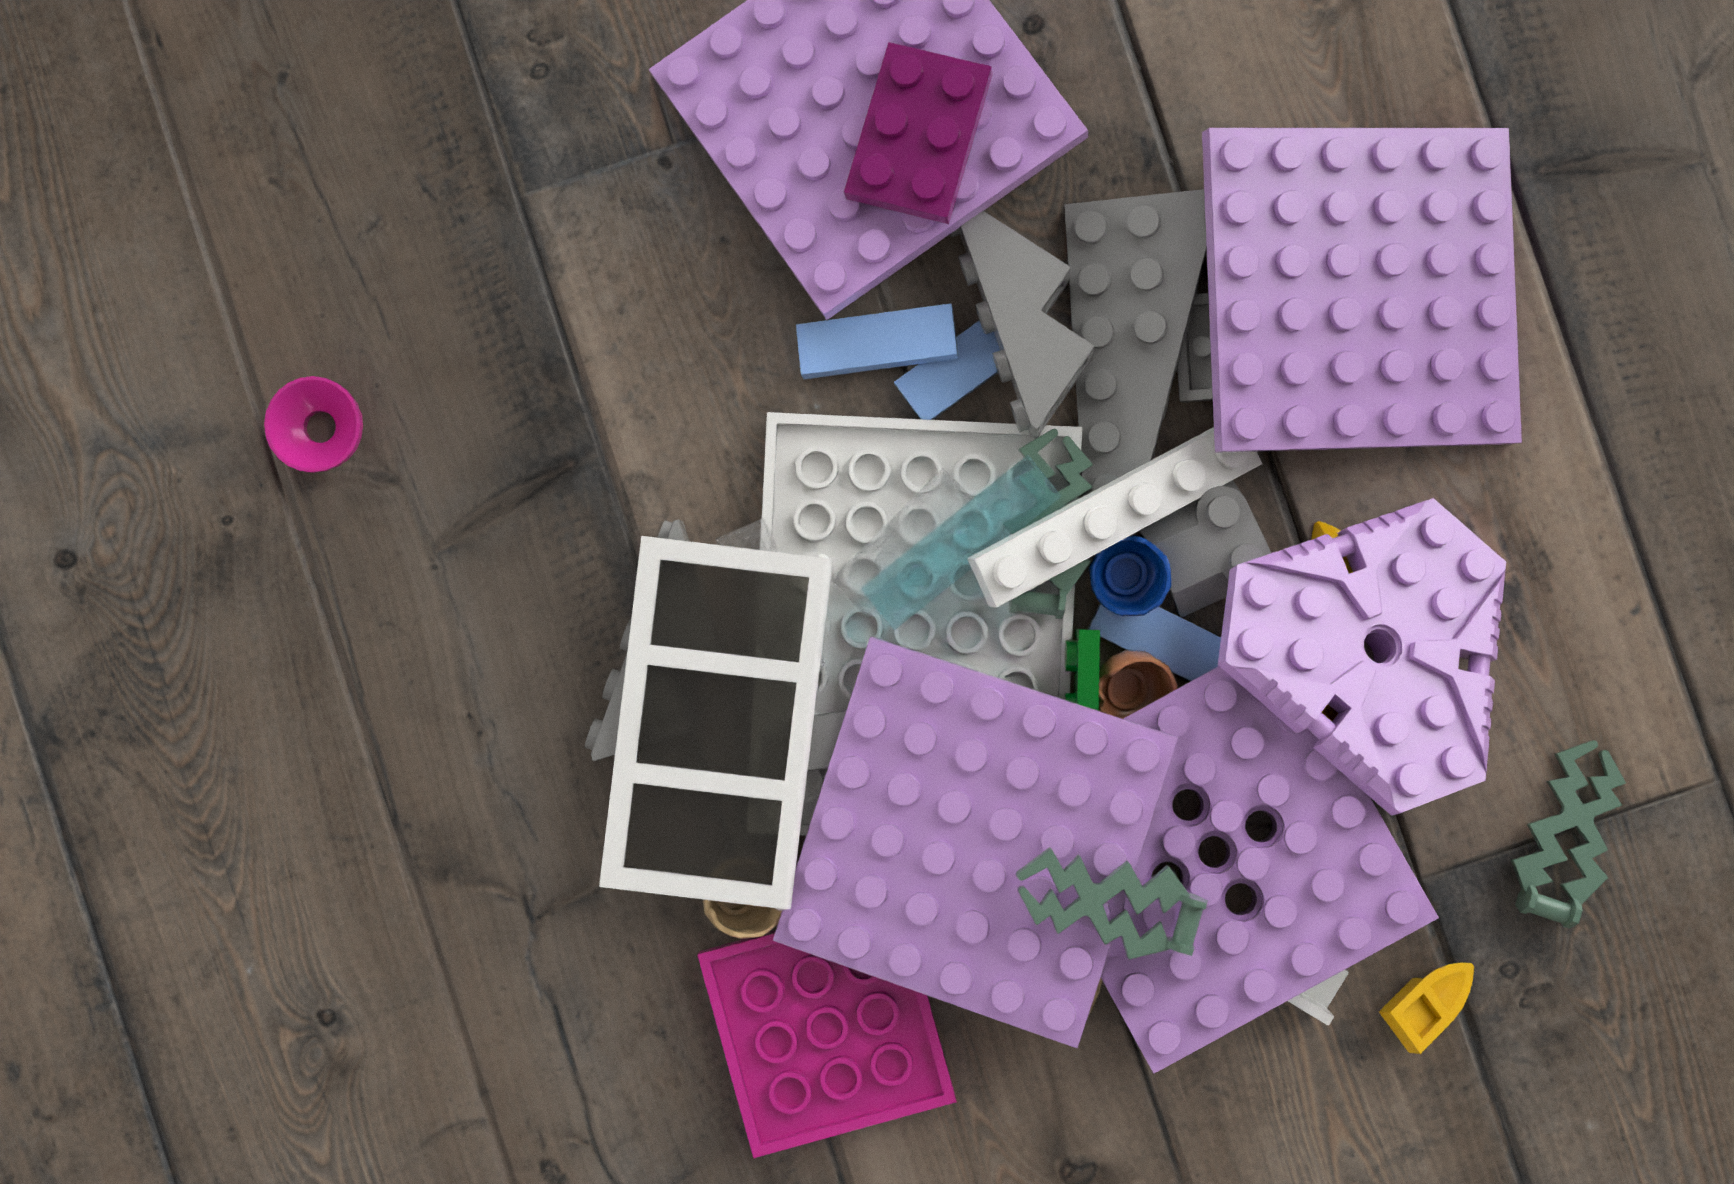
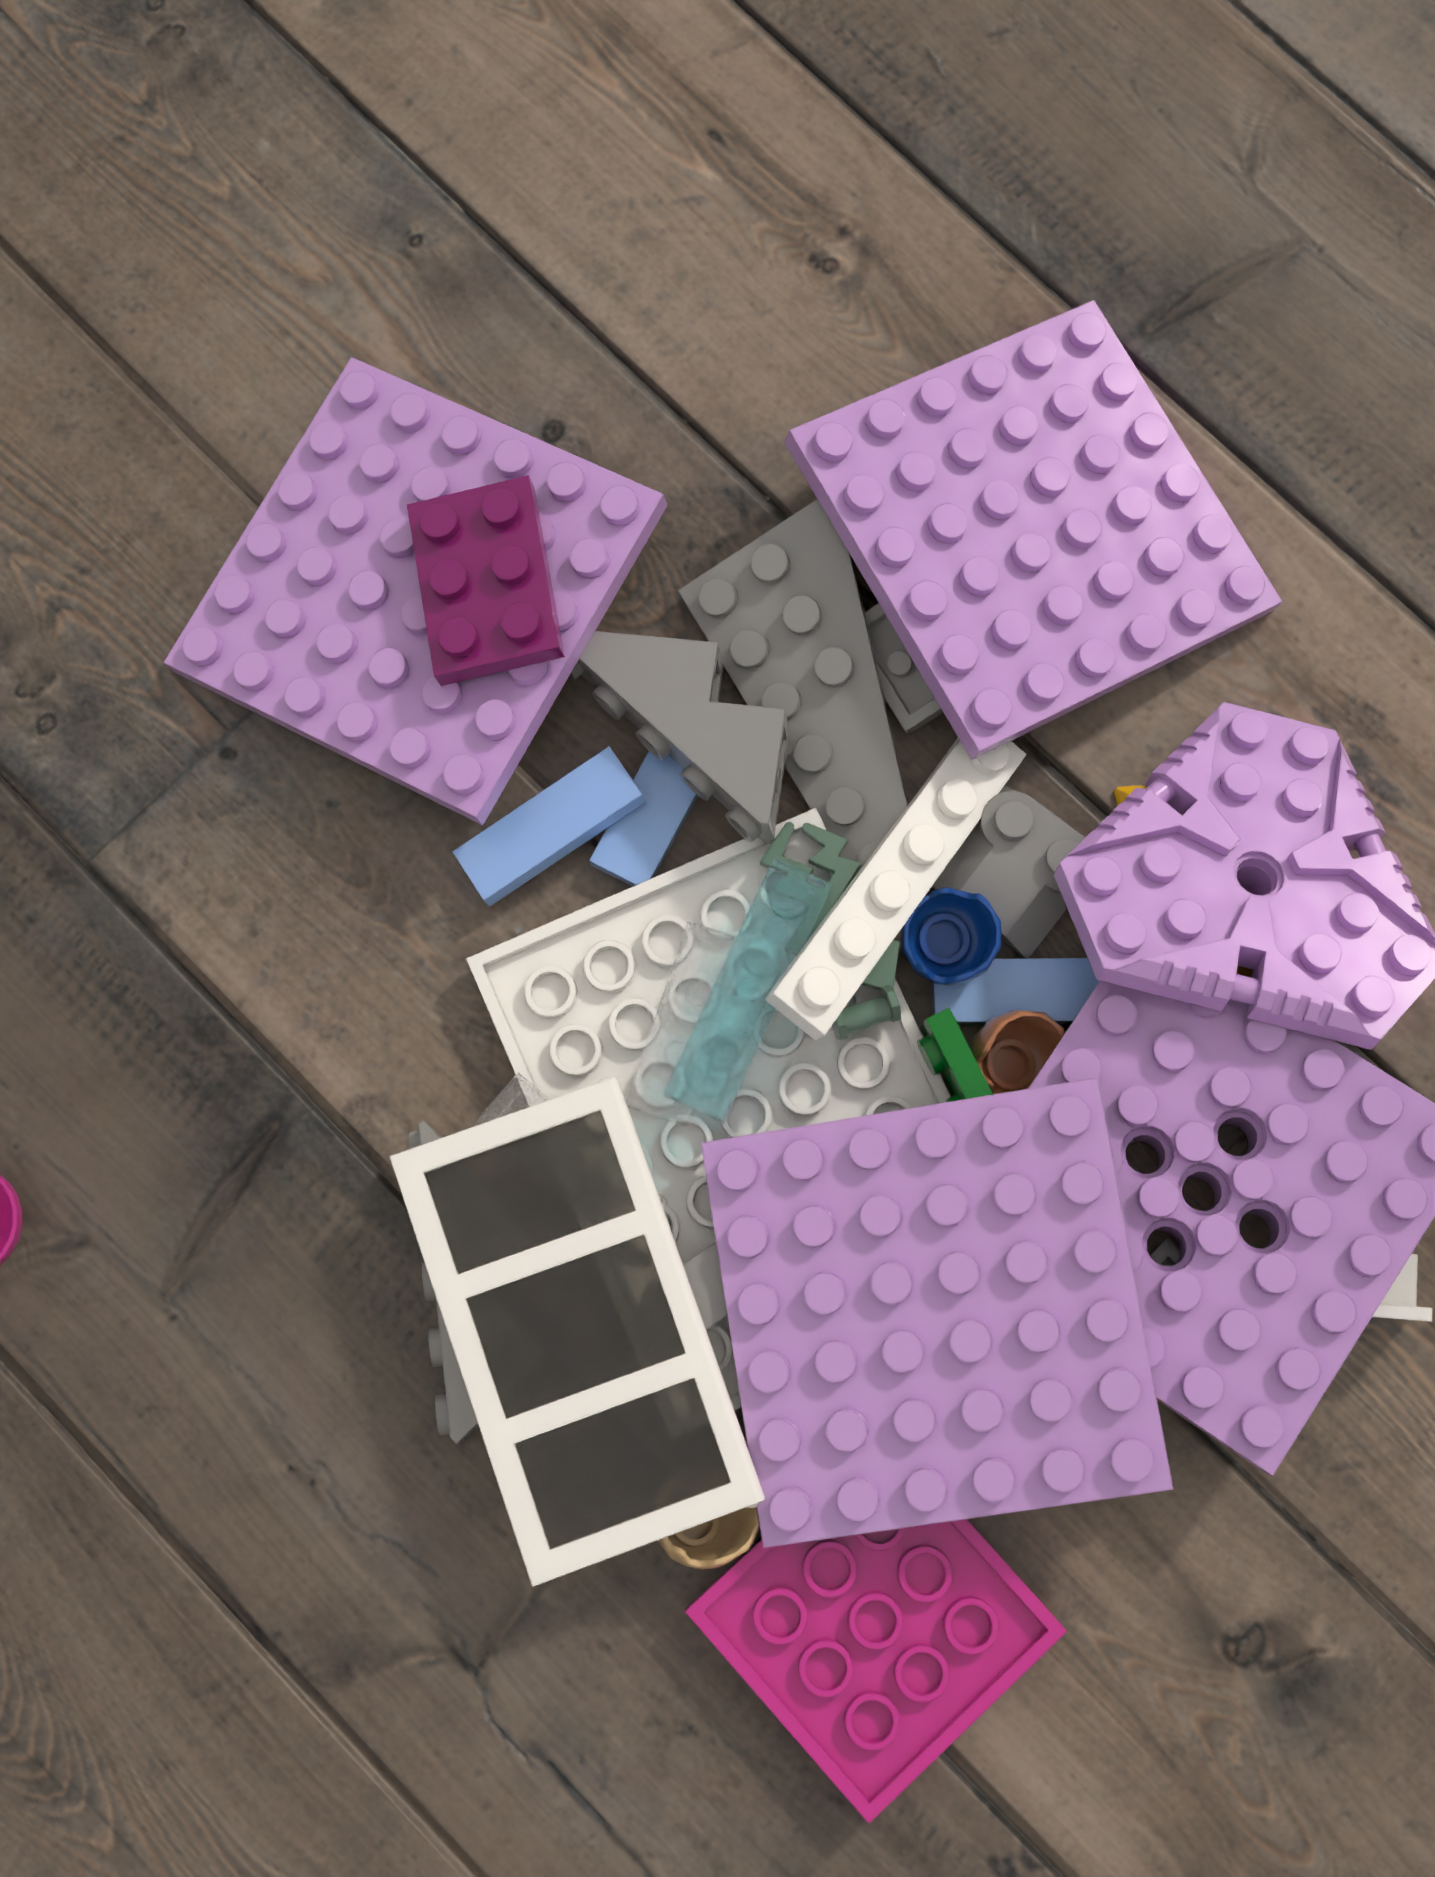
camera: 30 degrees left, 10 degrees down
(1093, 895) = (1099, 1300): sand green piece -> none

